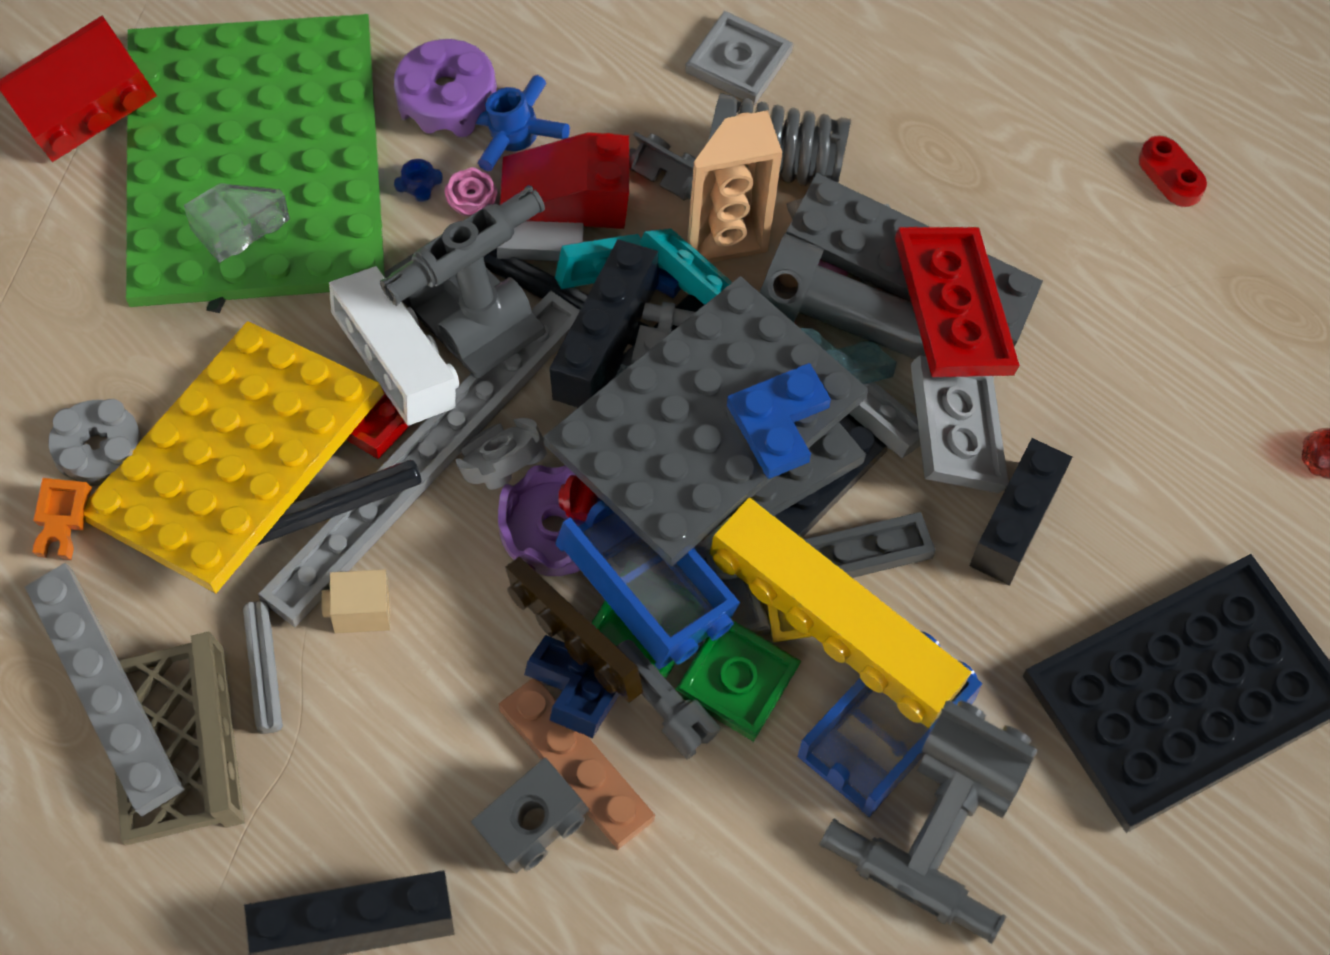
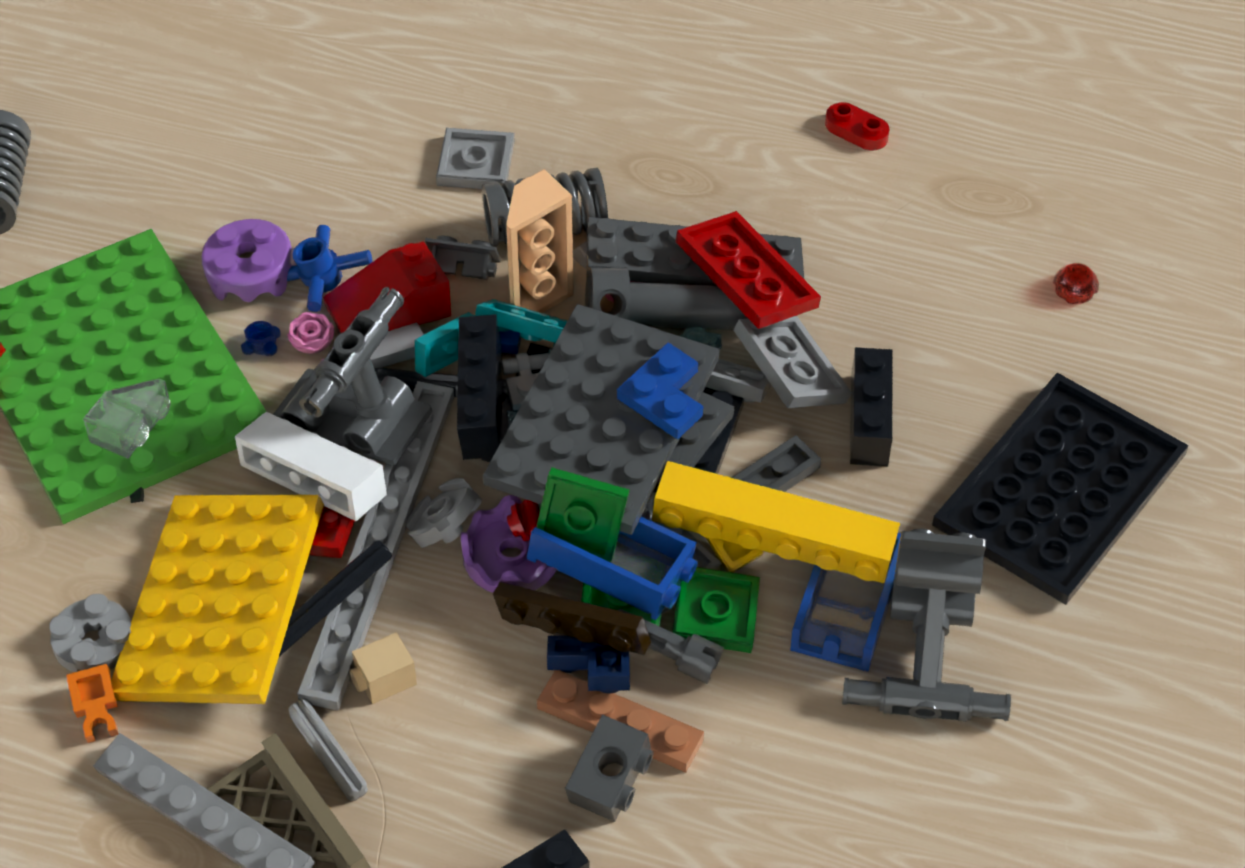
camera: 20 degrees left, 10 degrees down
(625, 523) = (583, 512): none -> green tile

